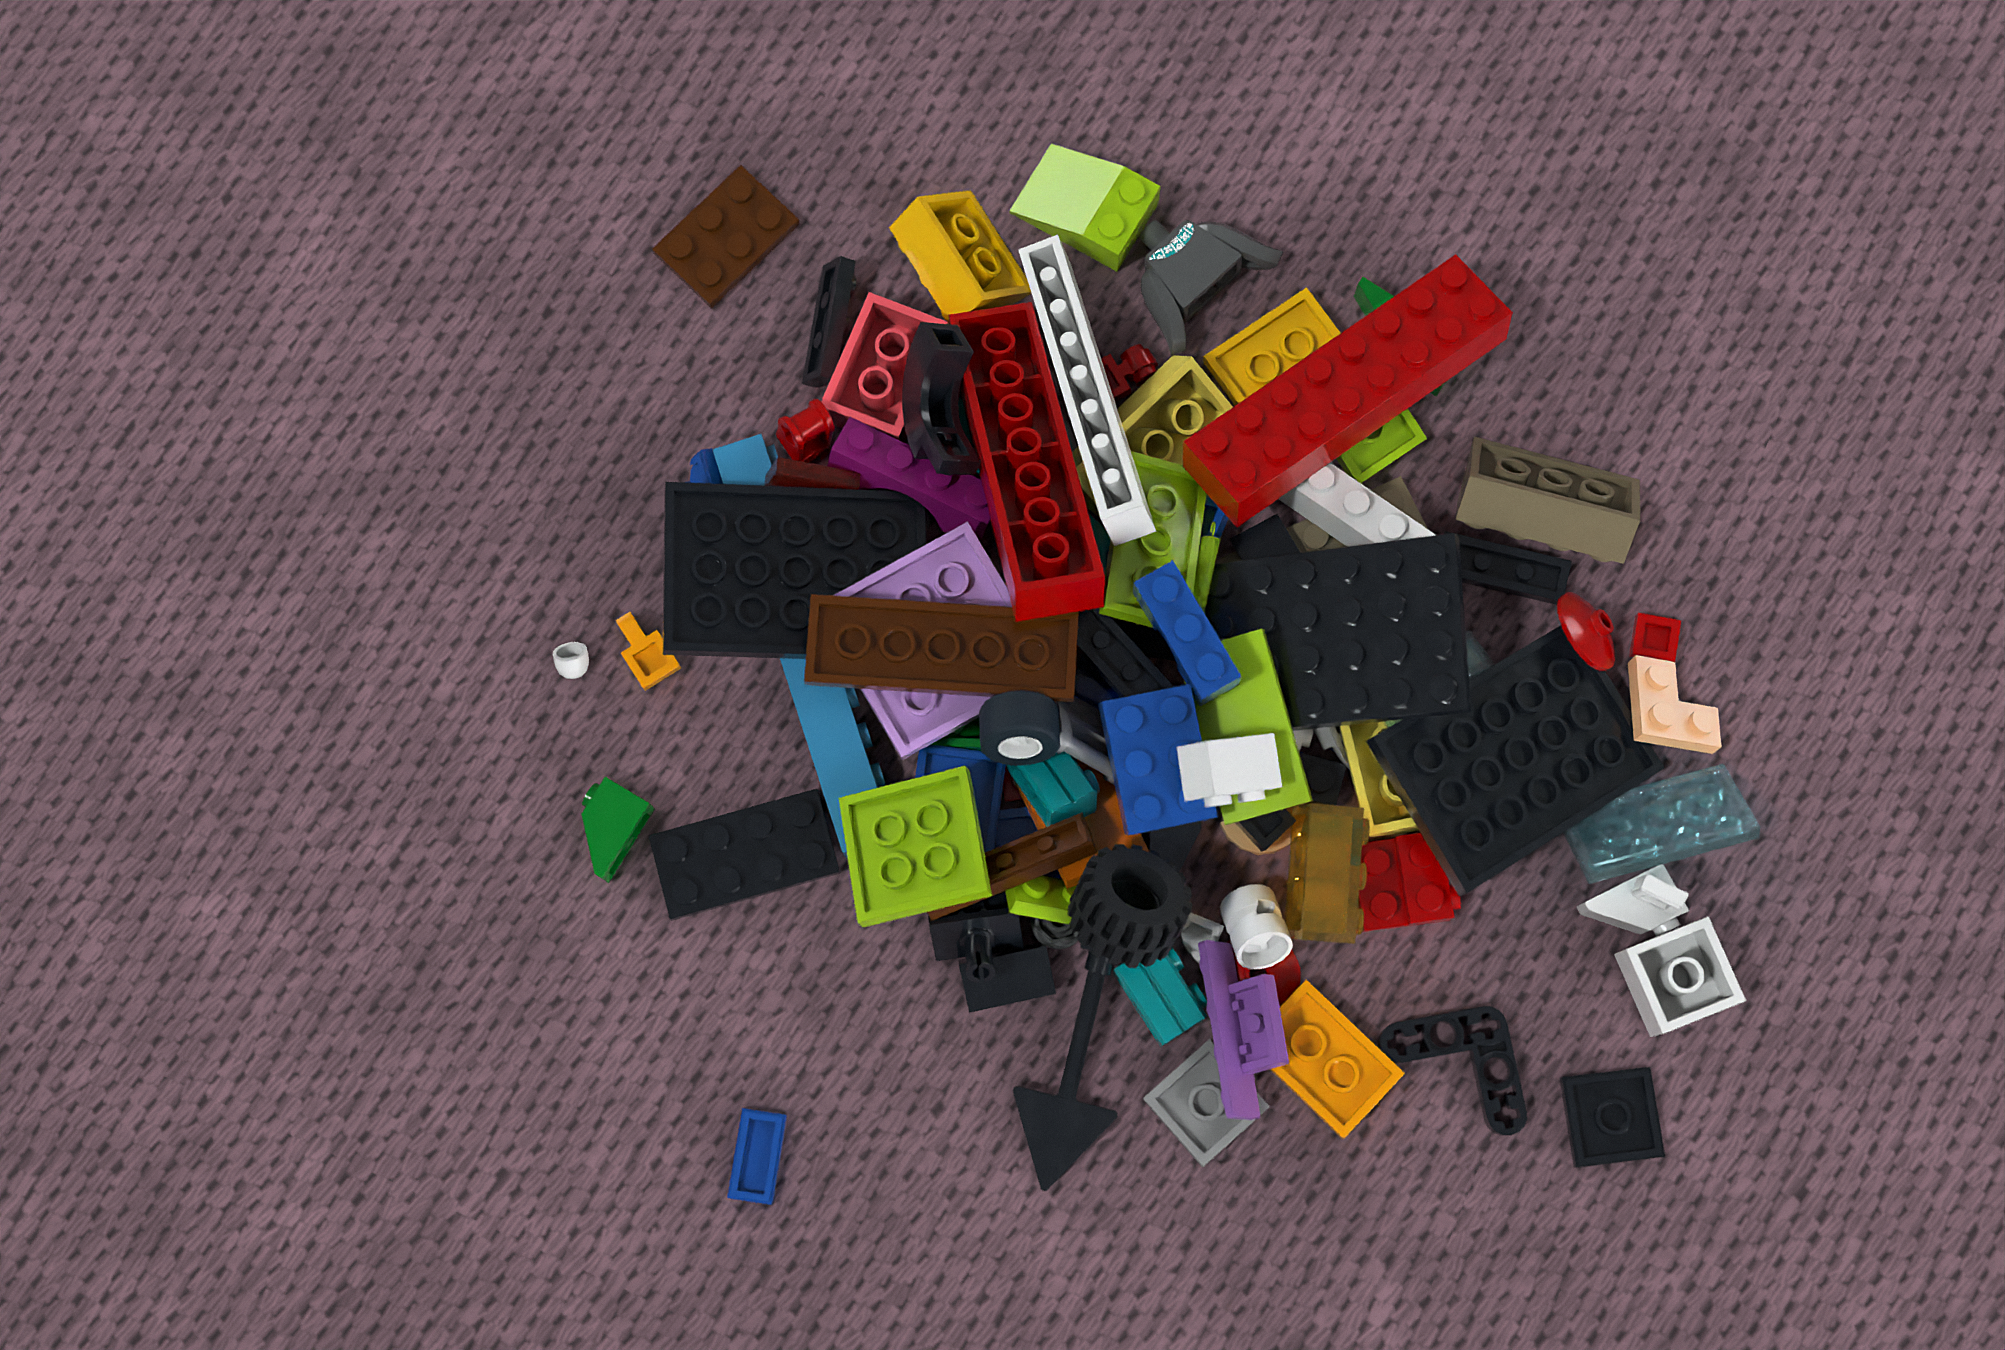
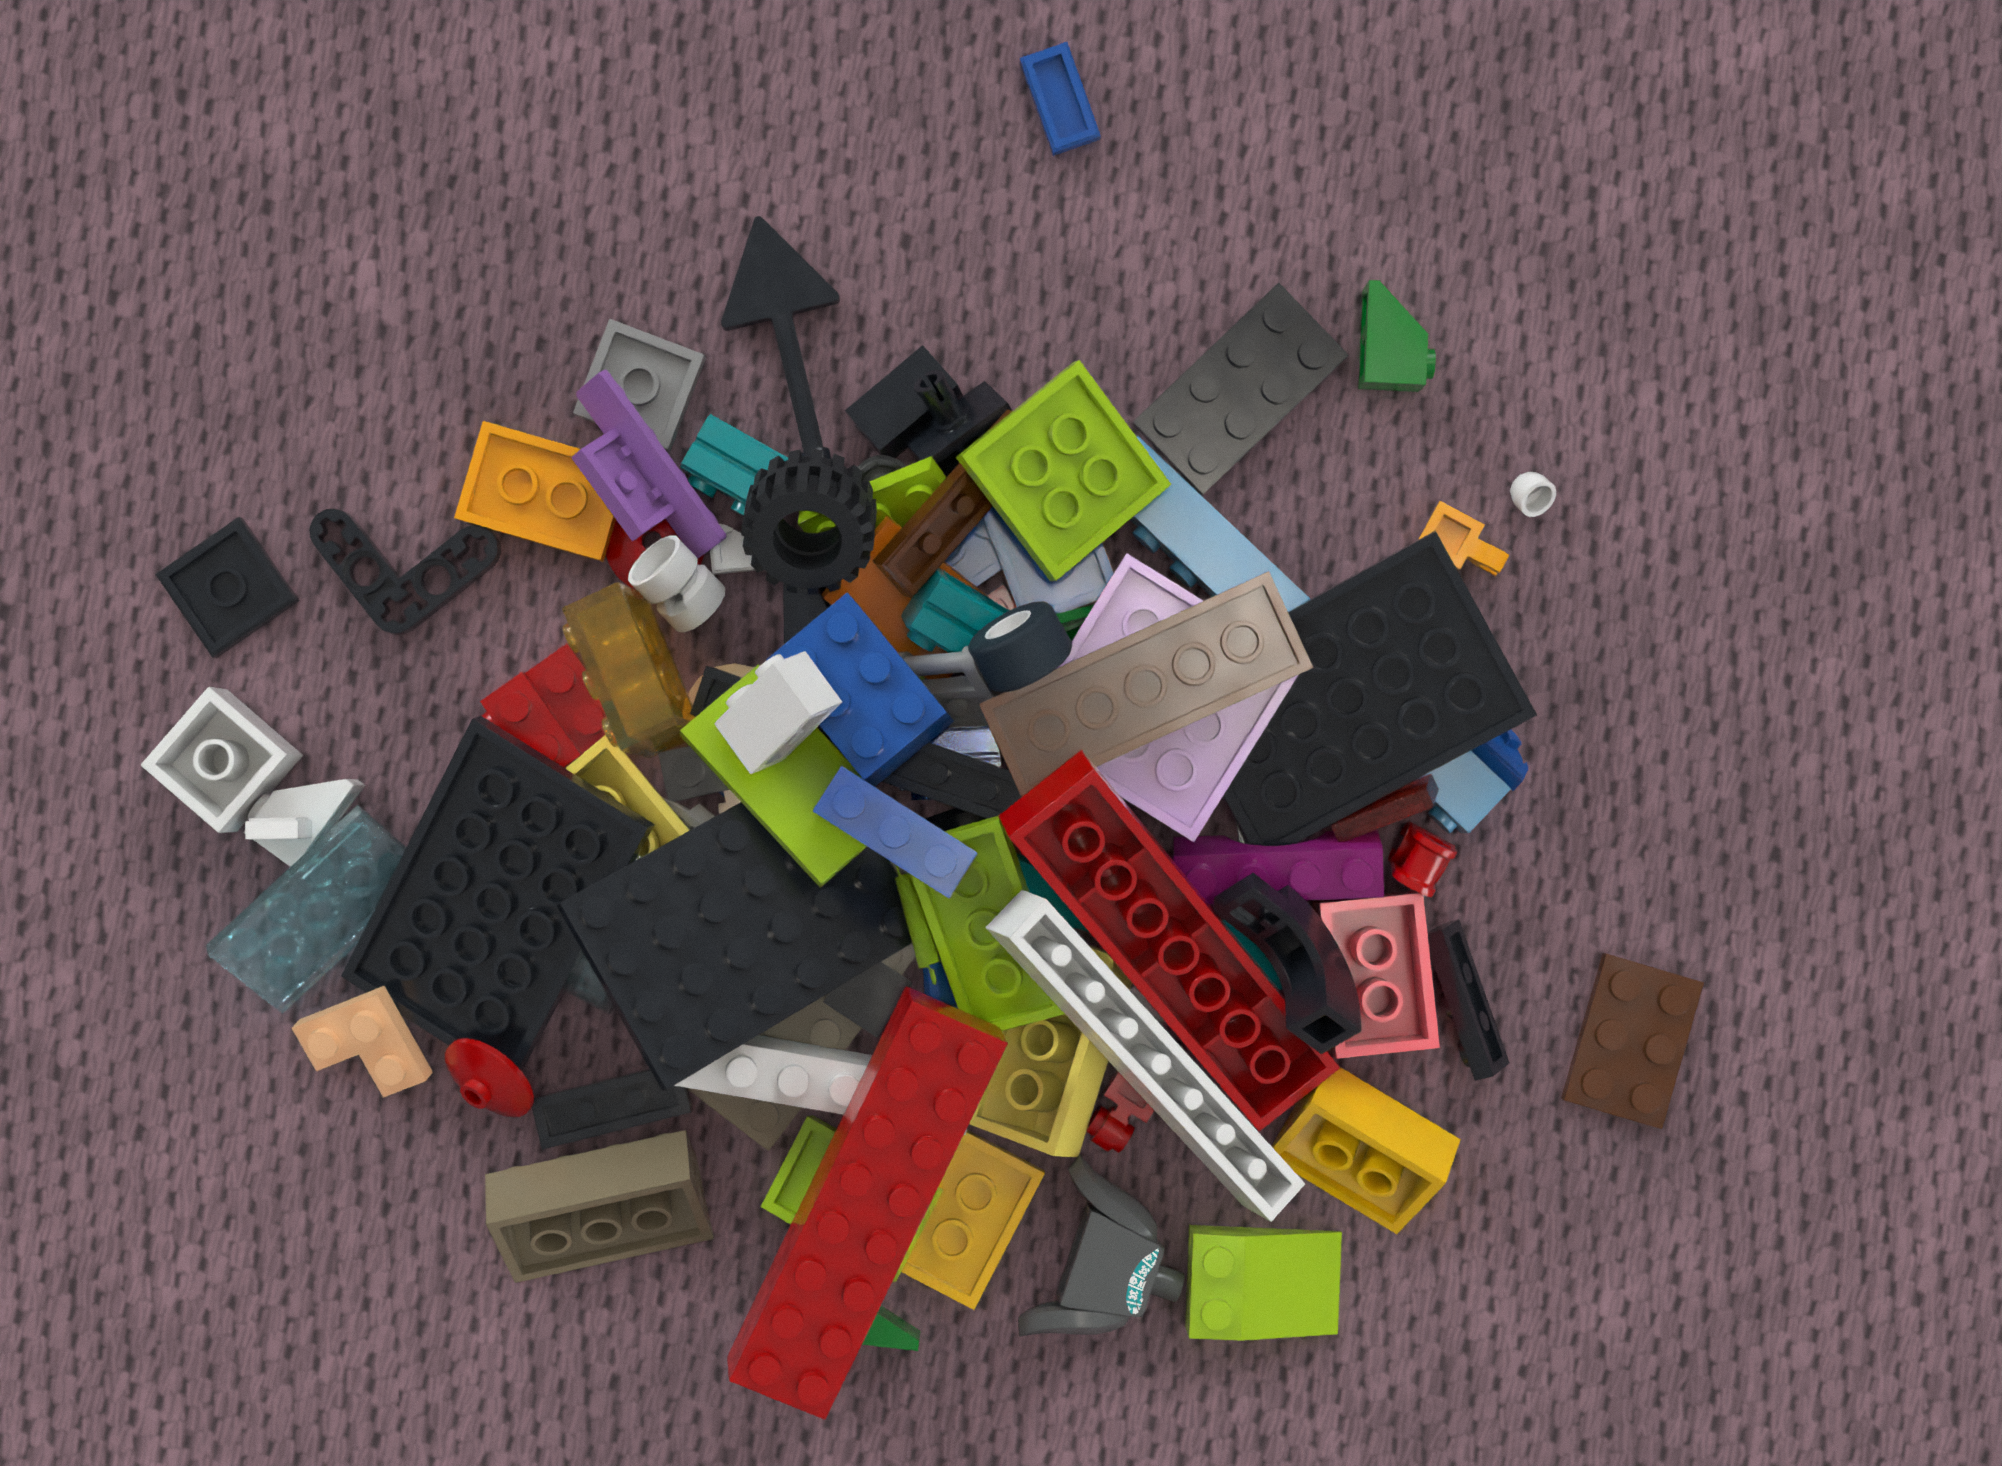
camera: 145 degrees right, 10 degrees up
(1655, 637) = (416, 1113): red tile -> none

